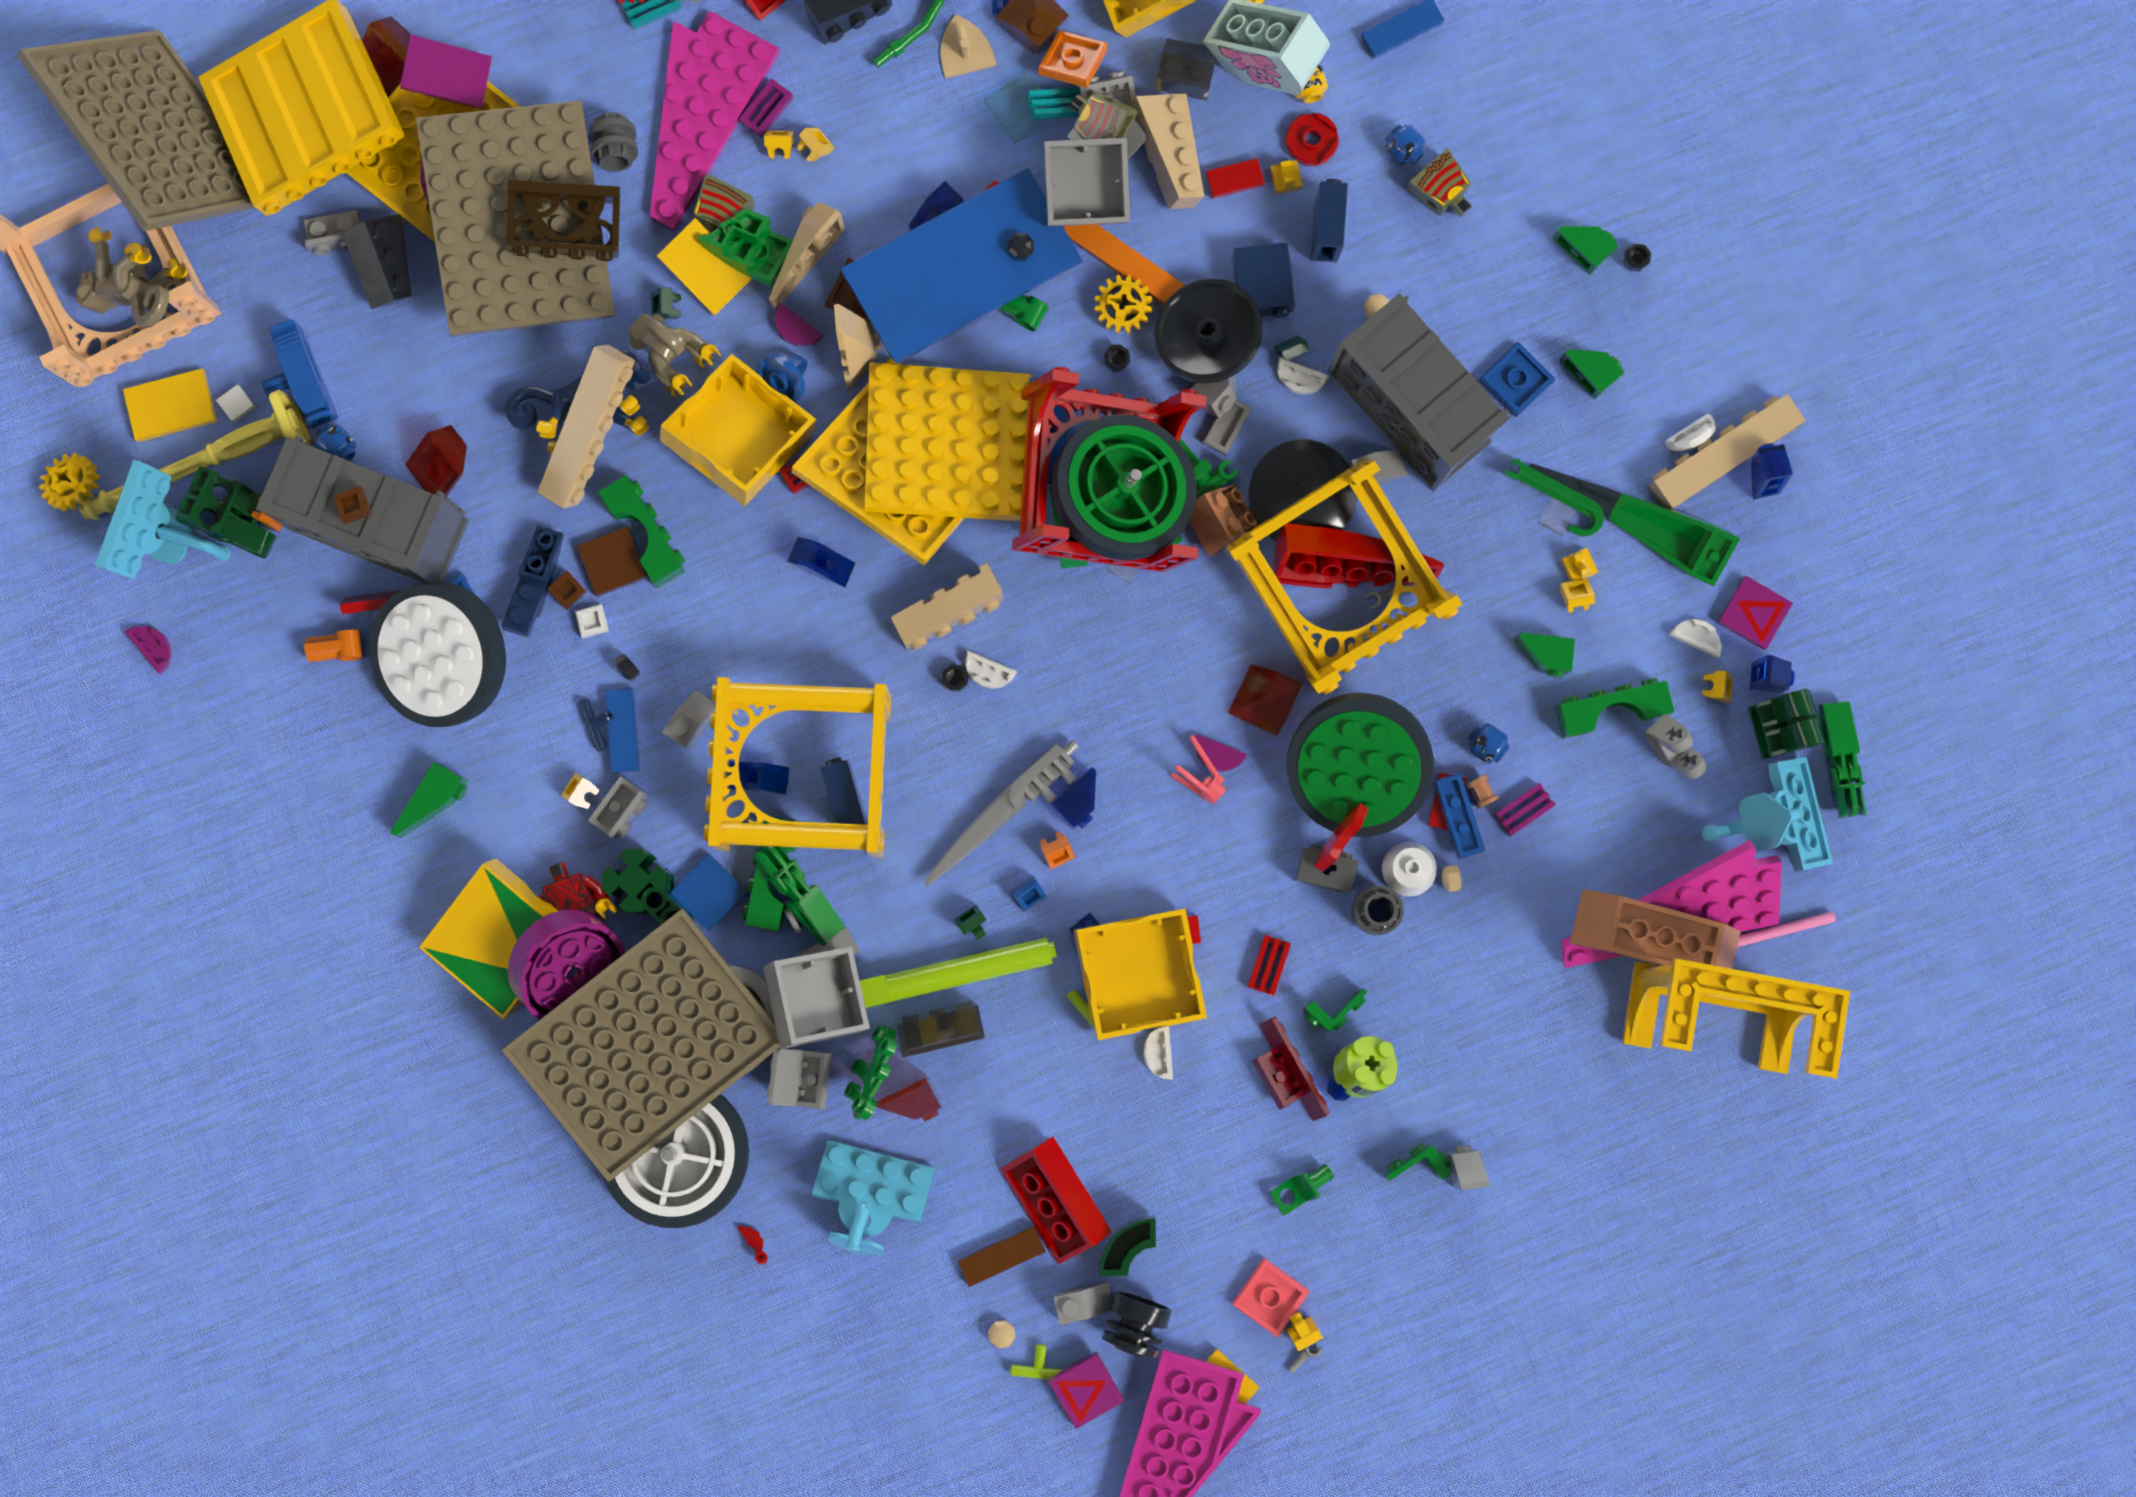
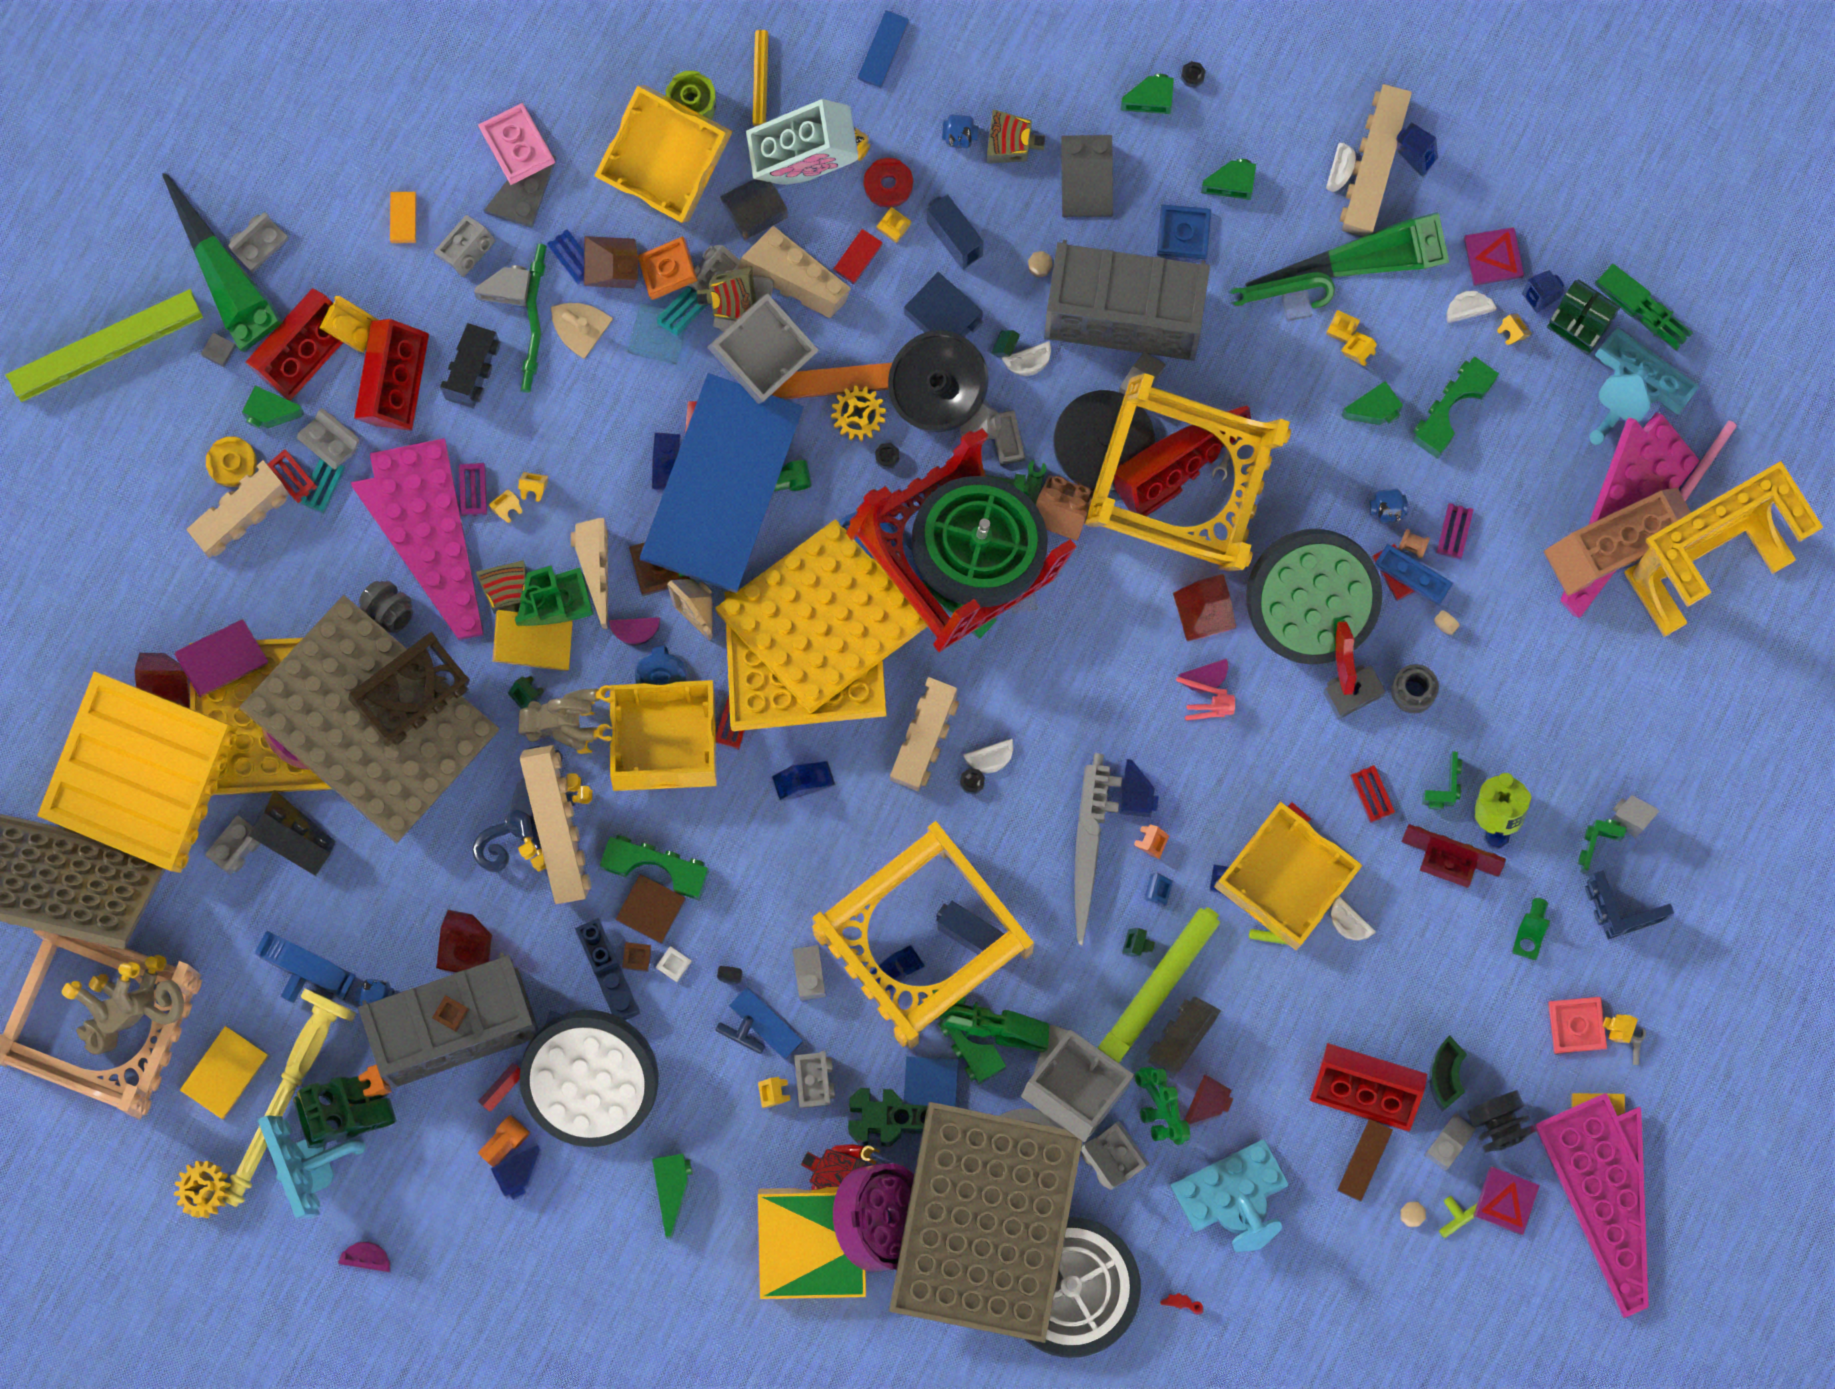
camera: 35 degrees left, 5 degrees down
(236, 403) = (272, 1030): white tile -> none
(322, 681) = (517, 1173): none -> clear blue slope
(792, 920) = (1008, 1051): light grey piece -> none
(1020, 246) = (753, 433): black tile -> none
(1374, 1230) = (1608, 914): none -> dark blue bracket
(1409, 869) = (1411, 641): white cone -> none
(1477, 267) = (1087, 176): none -> dark grey slope
(1673, 747) = (1519, 399): light grey piece -> none

